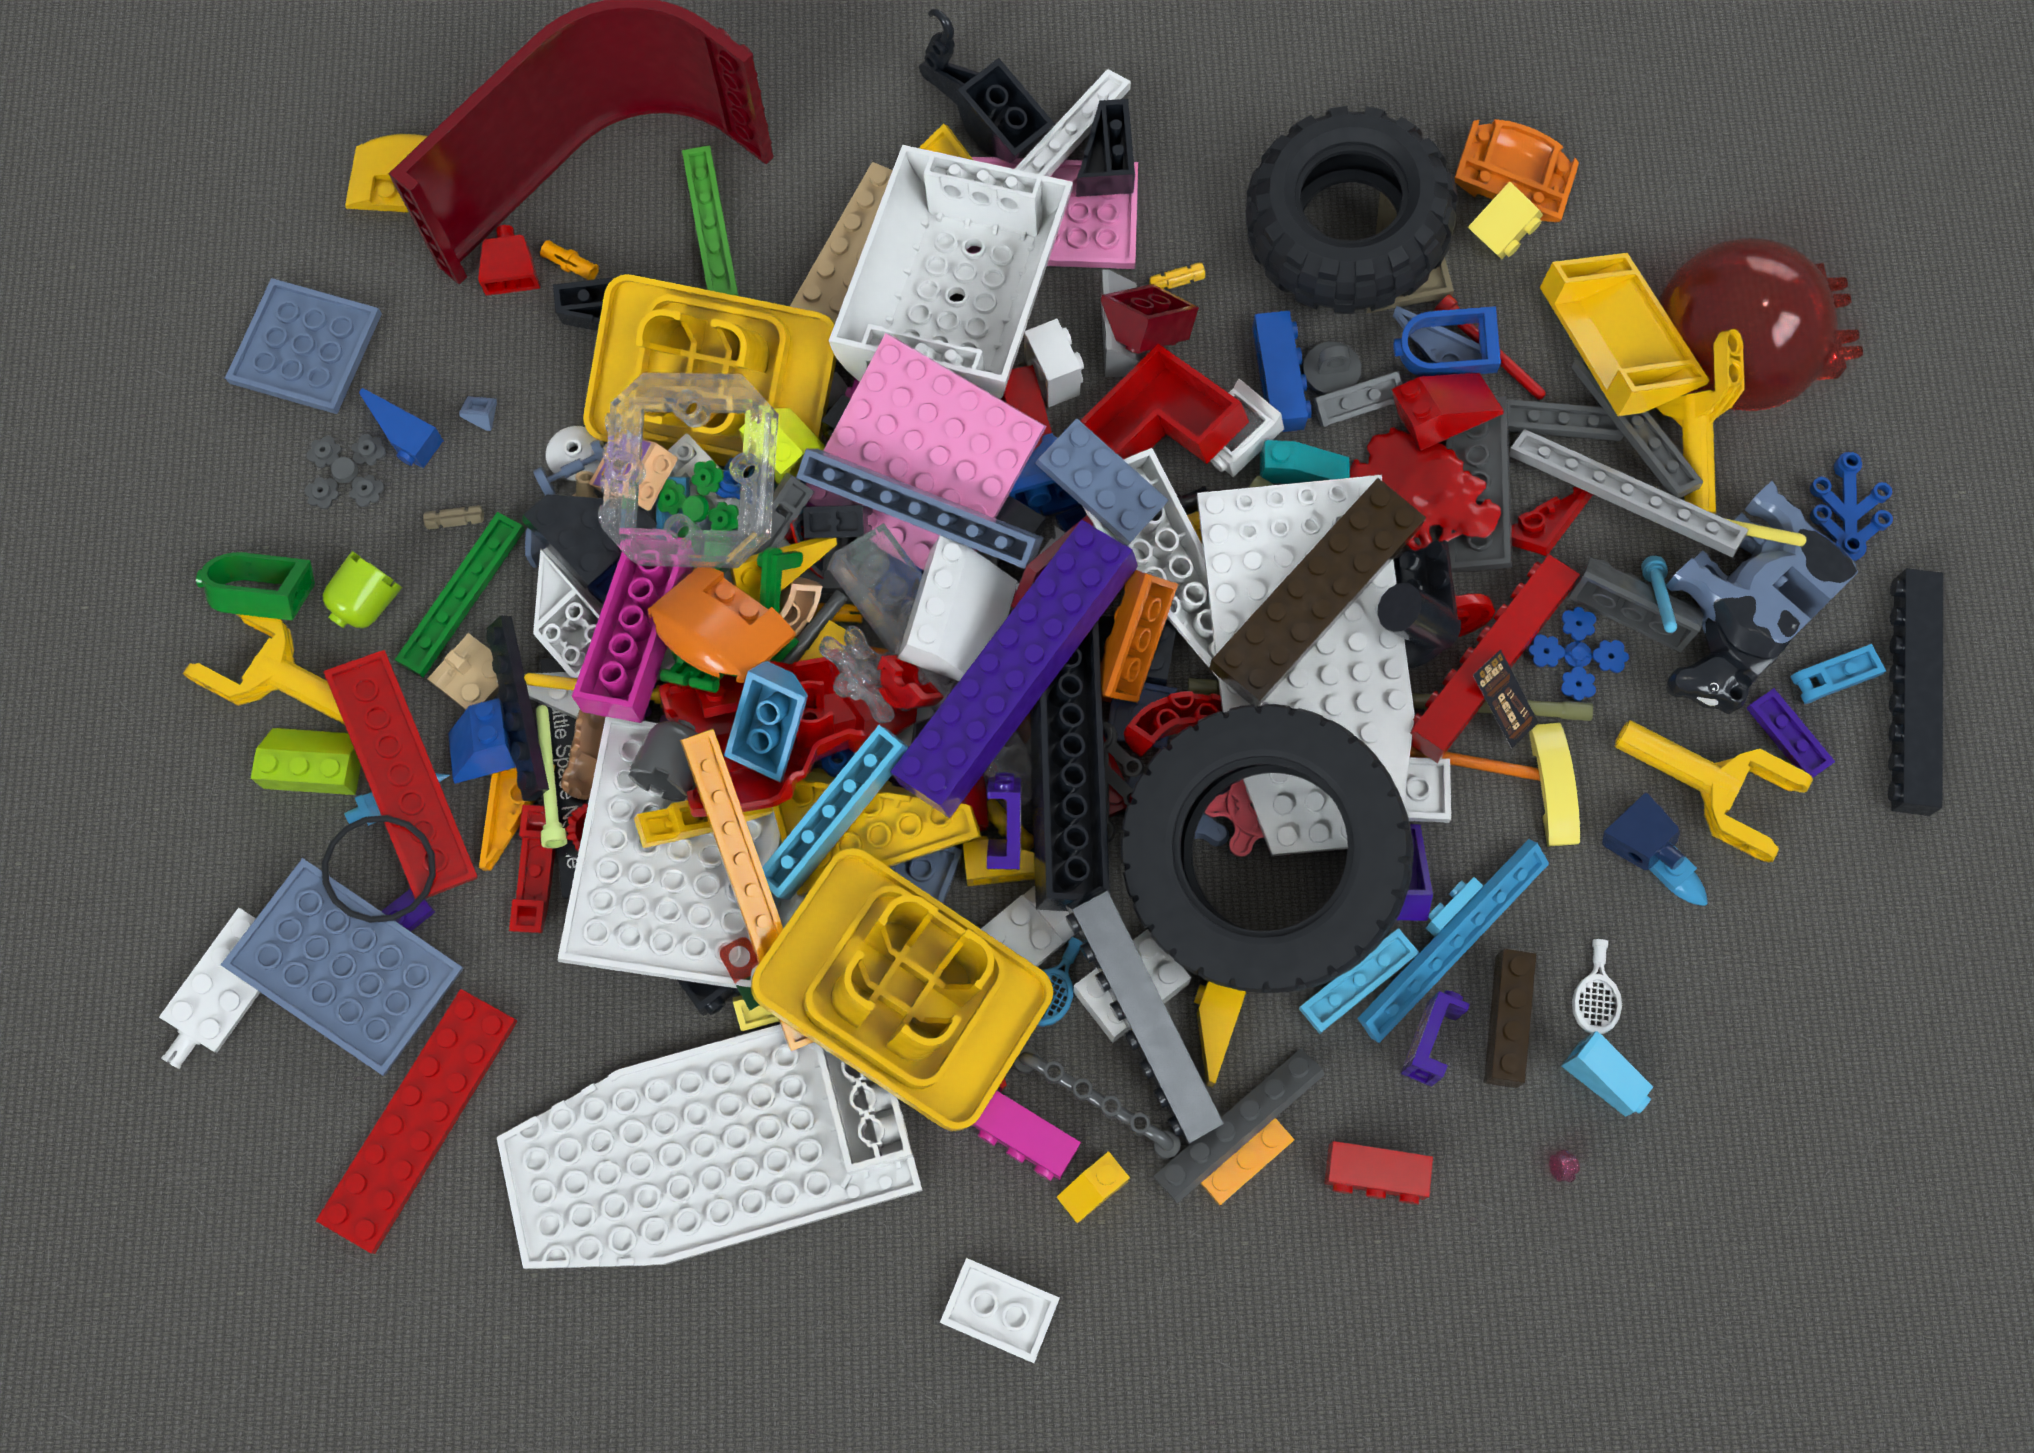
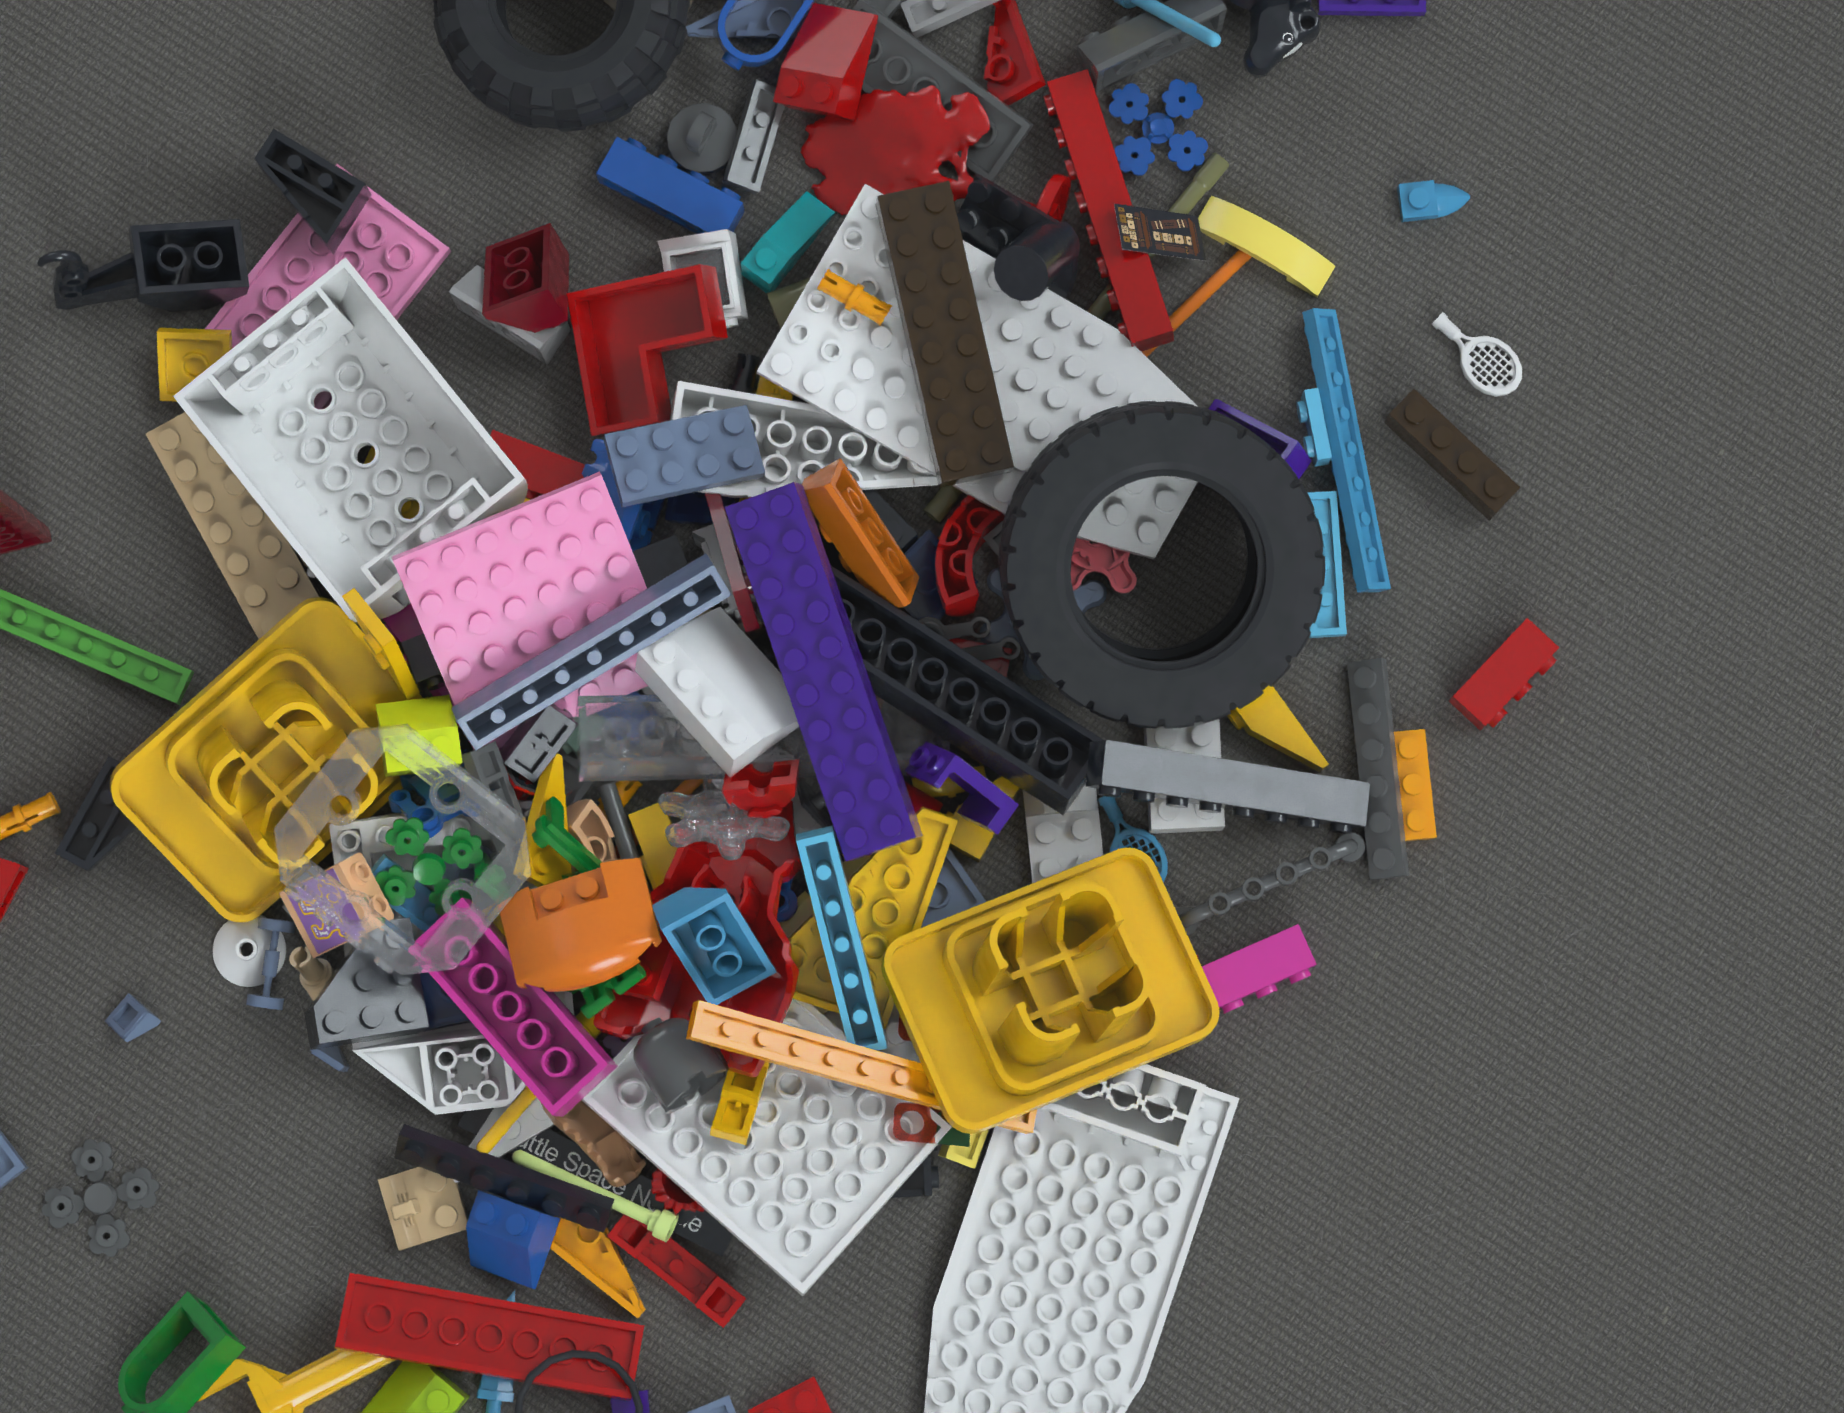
camera: 55 degrees left, 10 degrees up
(358, 593) = (260, 1263): lime cylinder -> none
(409, 435) = (109, 1108): blue slope -> none
(453, 517) = (235, 1117): dark tan axle -> none
(460, 595) = (329, 1162): green plate -> none
(824, 377) = (382, 643): none -> yellow wing
(1000, 1310) = (1394, 1100): white plate -> none
(1054, 362) = (507, 406): white brick -> none
(1073, 126) = (253, 206): white plate -> none
(1093, 1187) = (1343, 940): yellow slope -> none
(1179, 276) = (492, 215): yellow axle -> none
(1296, 517) = (854, 297): none -> light orange pin
(1417, 1063) = (1417, 542): dark purple panel -> none
(1428, 790) = (1192, 367): white plate -> none
(1564, 1166) = (1611, 506): clear pink plate -> none
(1608, 1074) = (1561, 406): medium azure slope -> none
(1644, 835) = (1373, 204): dark blue torso -> none
(1716, 782) = (1368, 99): yellow piece -> none

